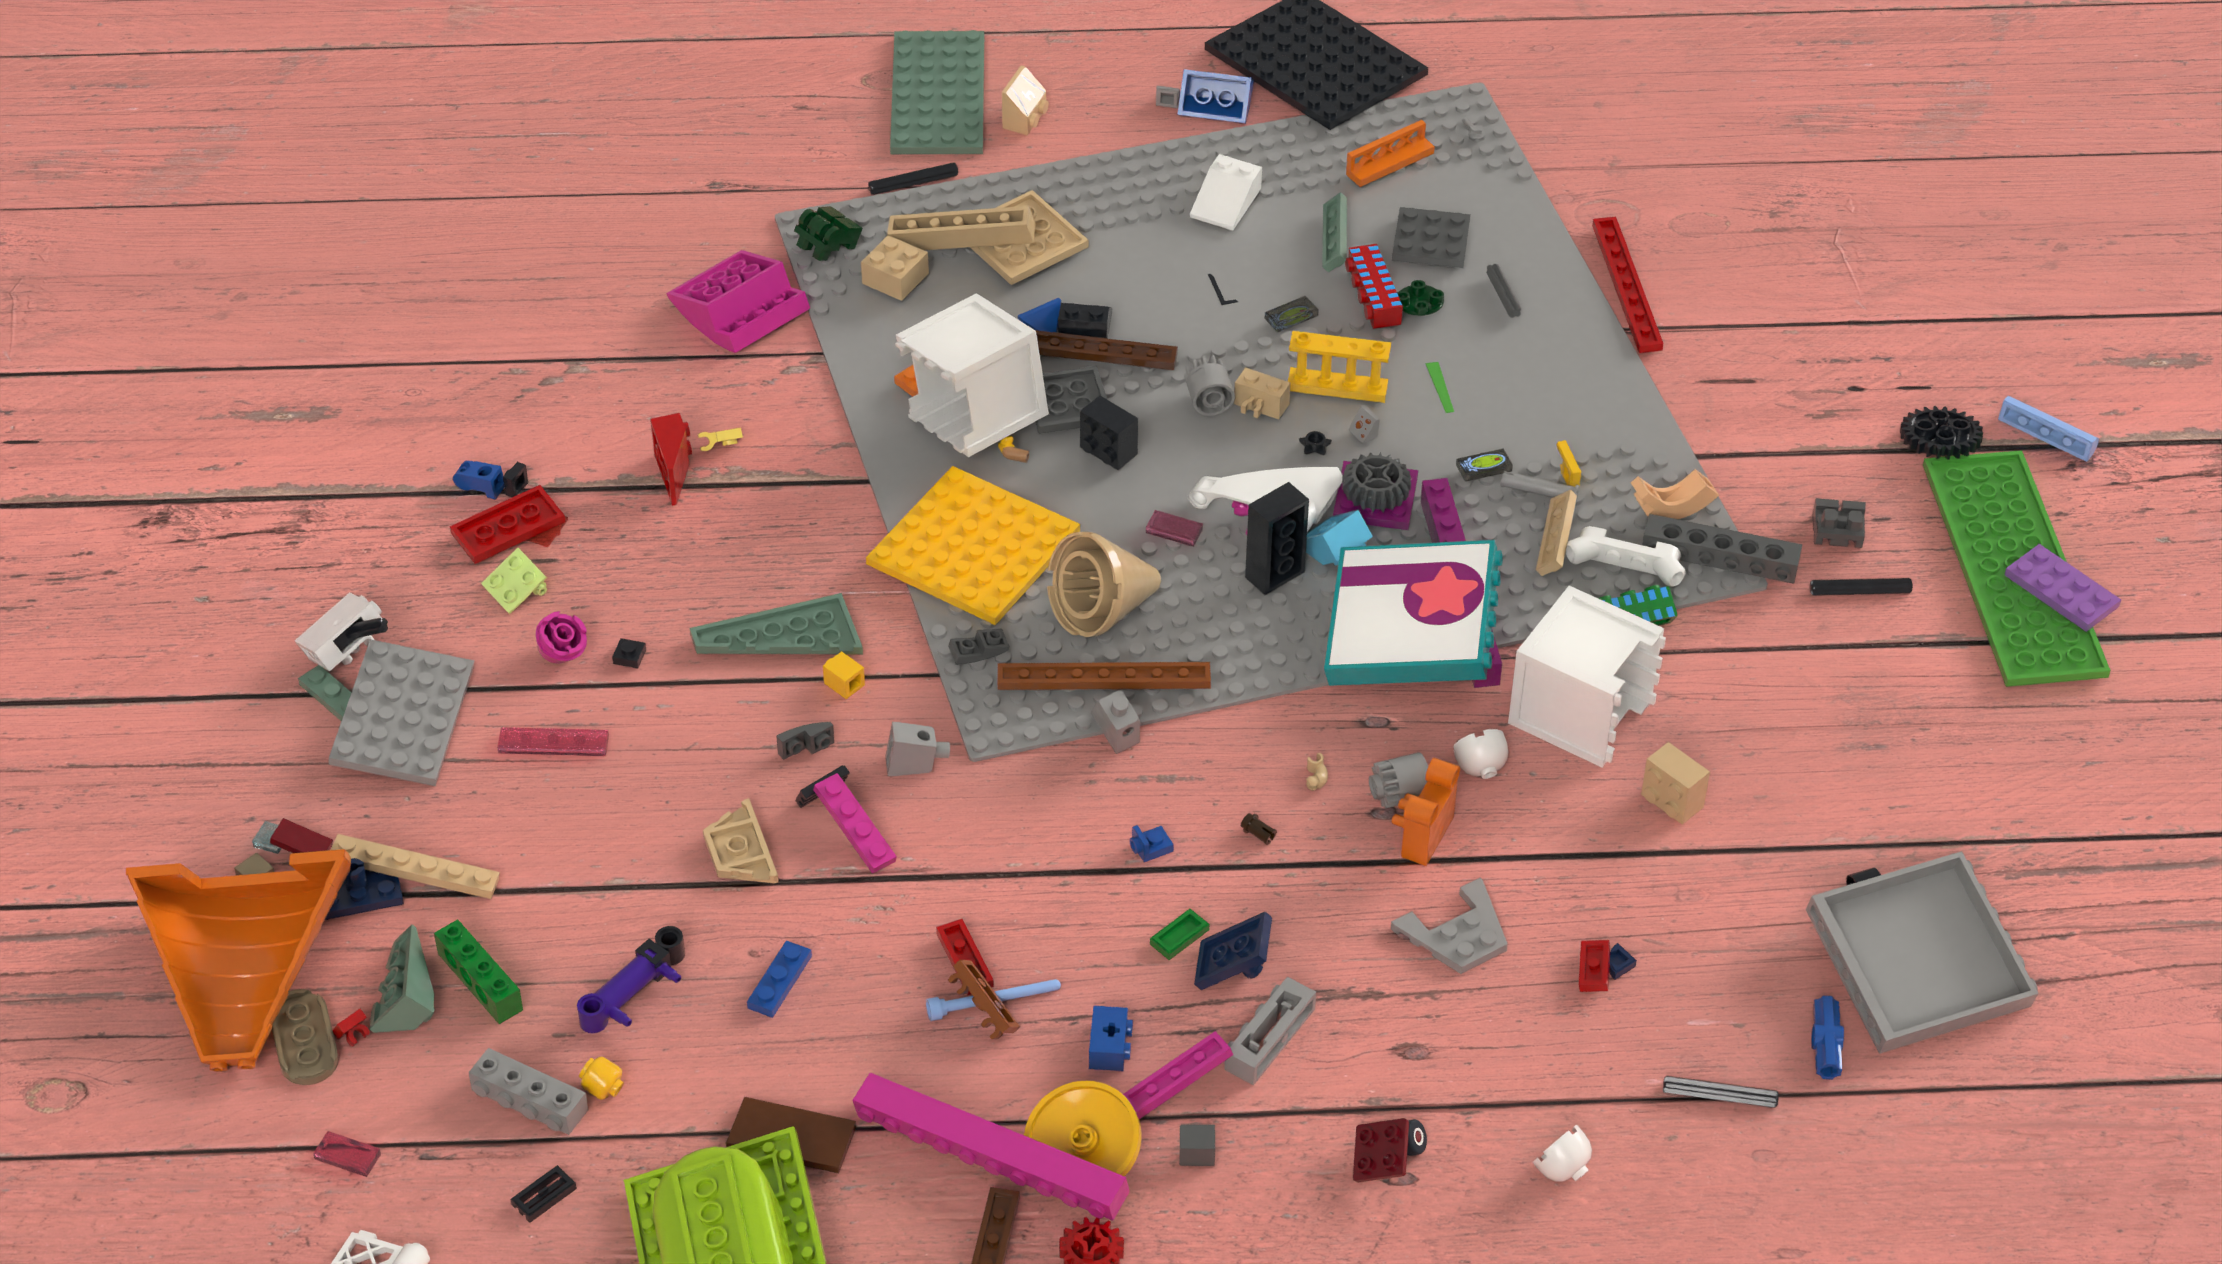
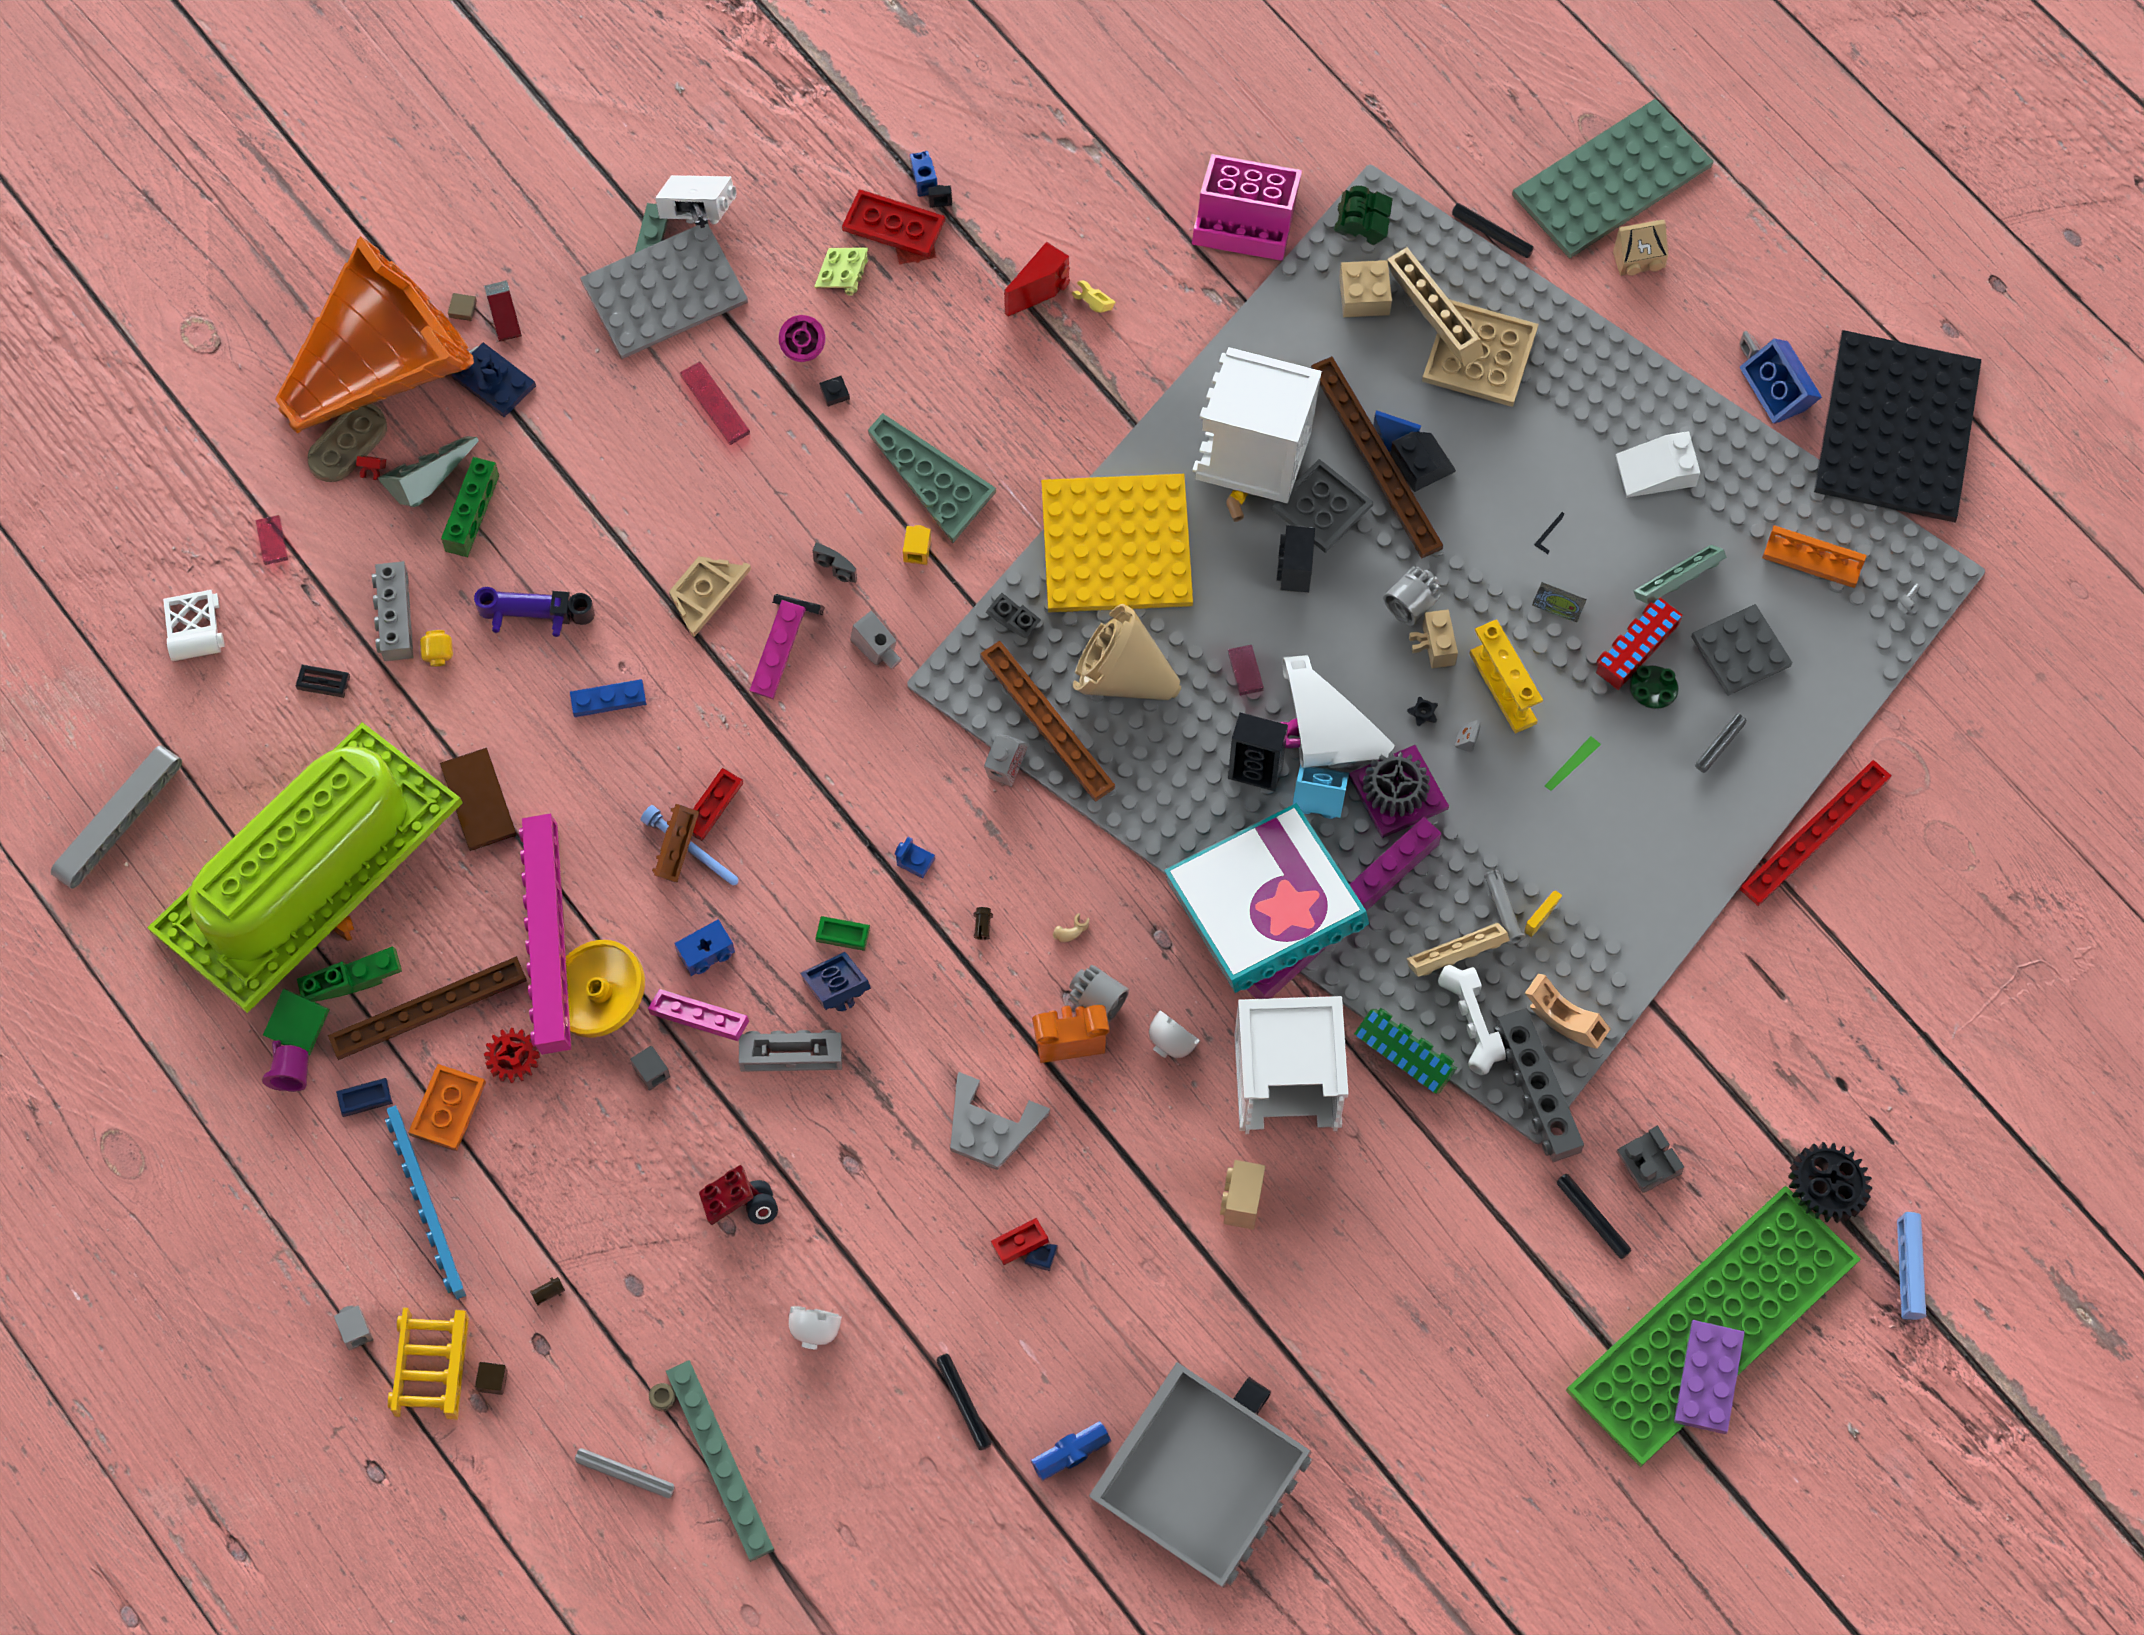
camera: 55 degrees right, 20 degrees up
(420, 867) = (530, 401): tan plate -> none
(1484, 465) = (1498, 850): tile -> none

